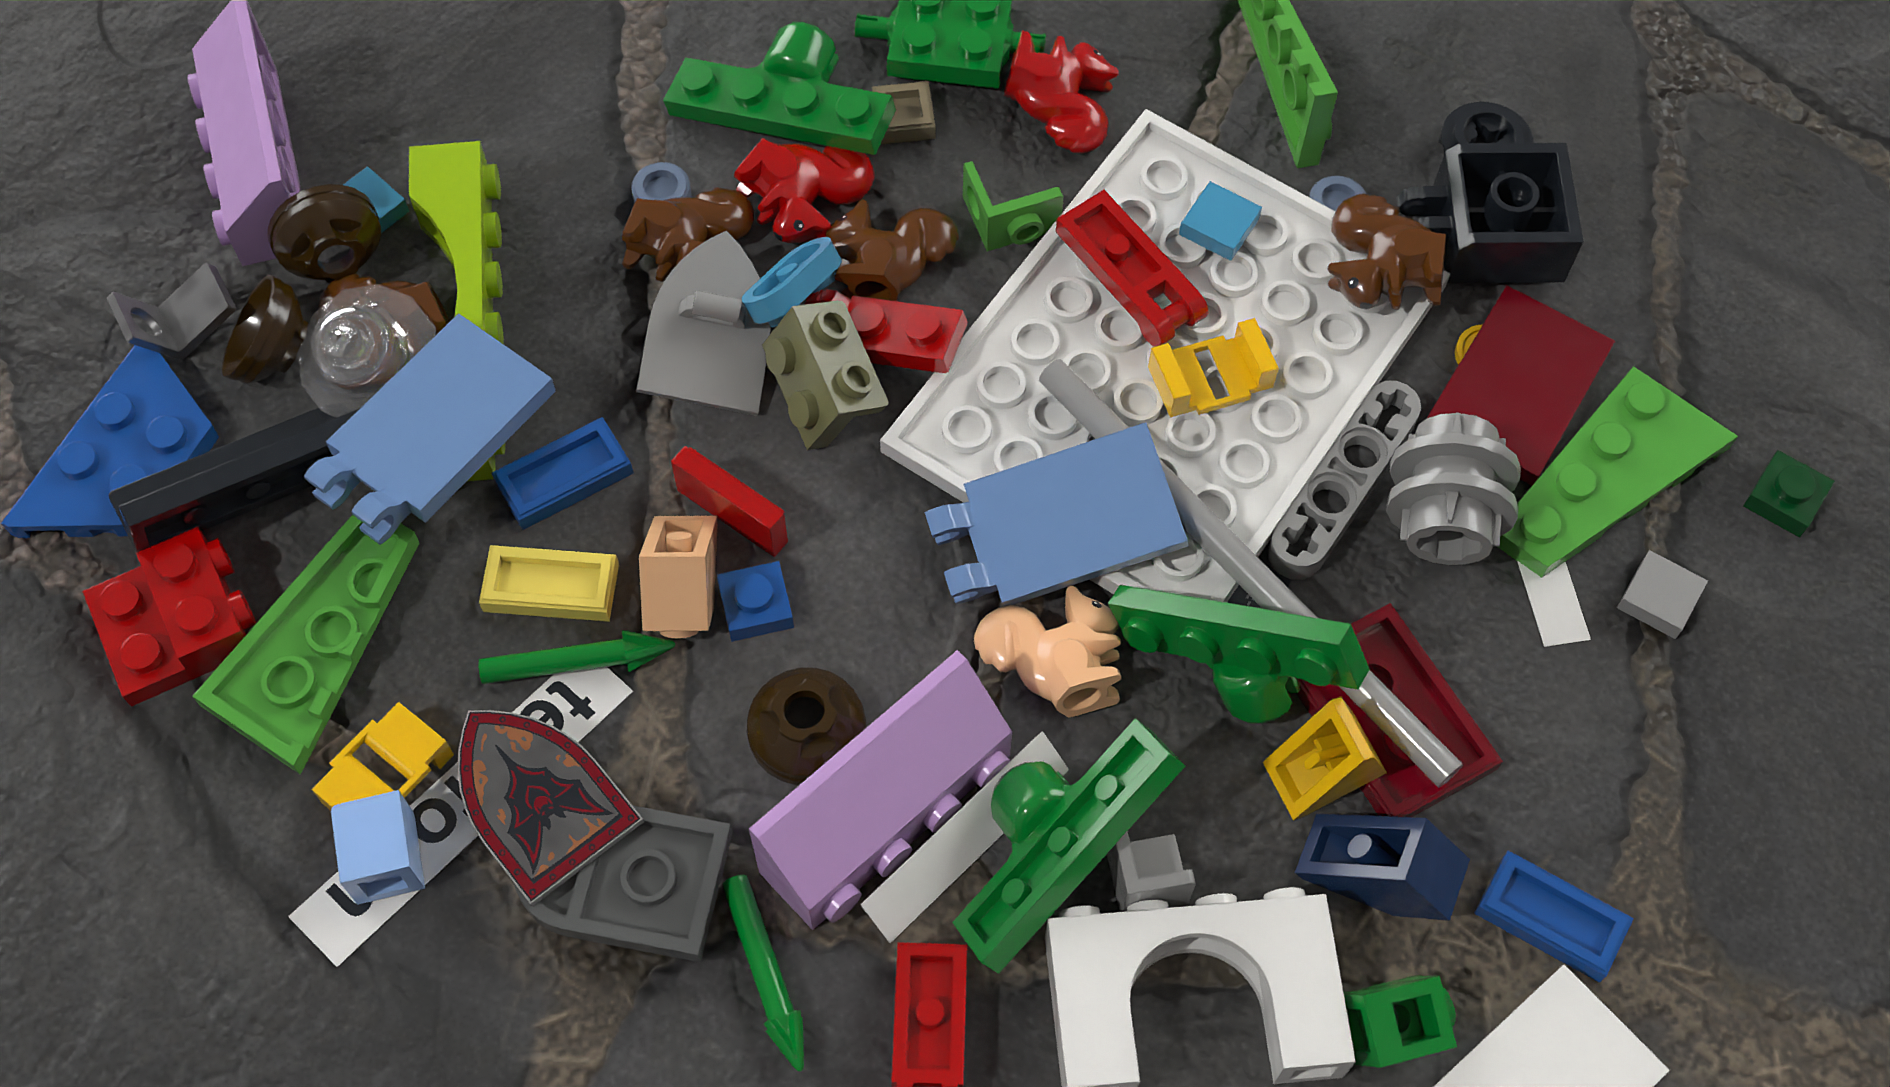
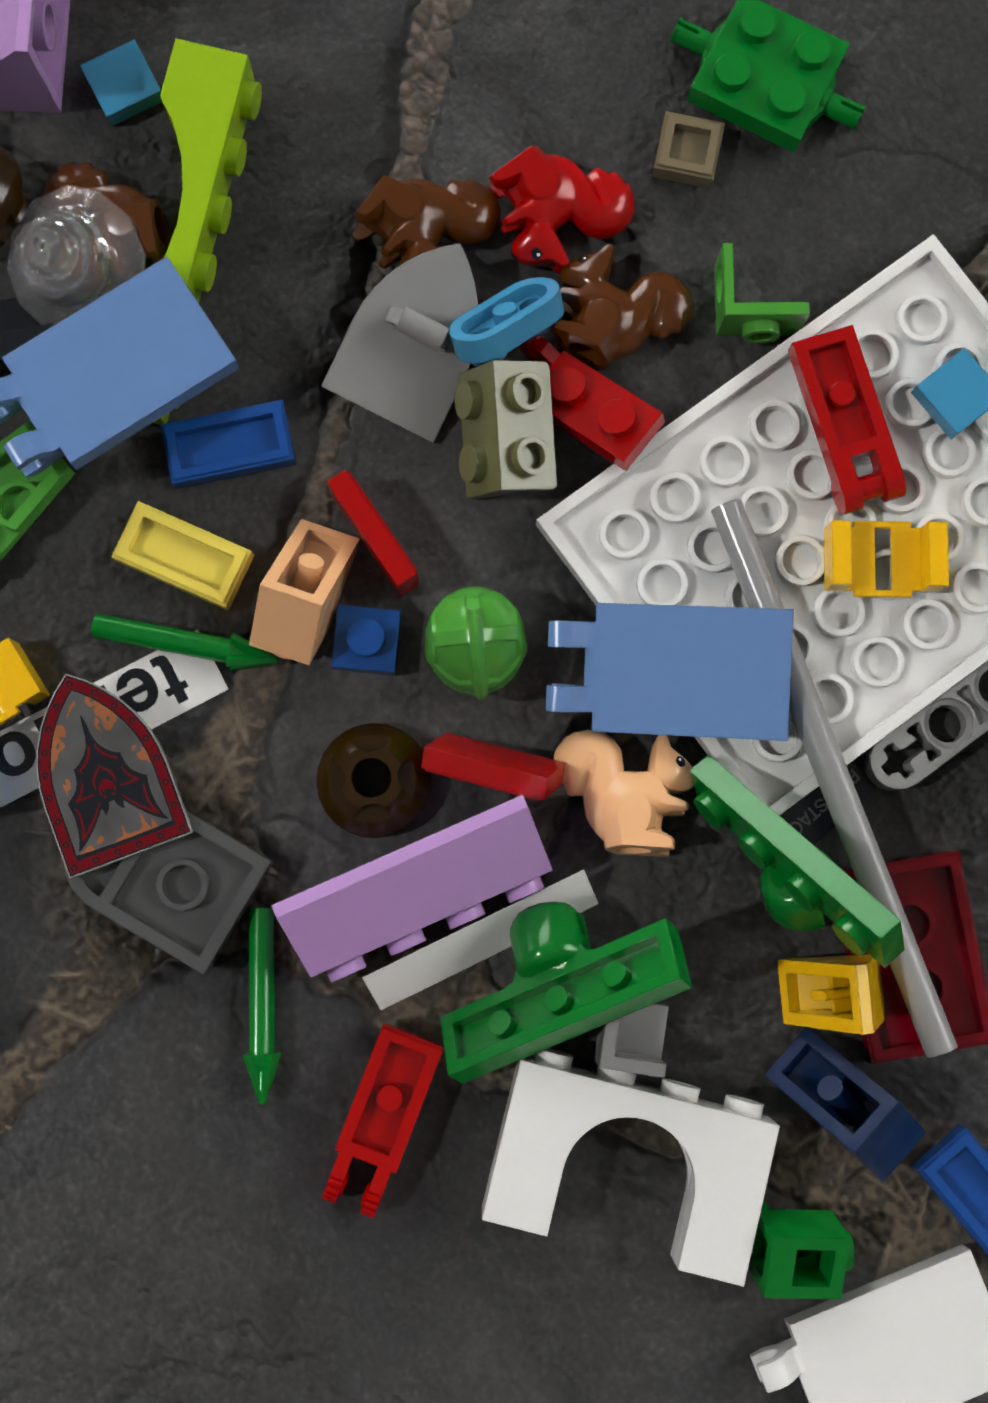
camera: 15 degrees right, 20 degrees up
(323, 219) = (67, 113): dark brown piece -> none
(661, 182) = (417, 156): sand blue tile -> none
(784, 95) = (573, 95): green plate -> none
(861, 561) = (475, 641): none -> bright green helmet
(914, 662) = (493, 766): none -> red tile
(1050, 87) = (843, 173): red animal -> none

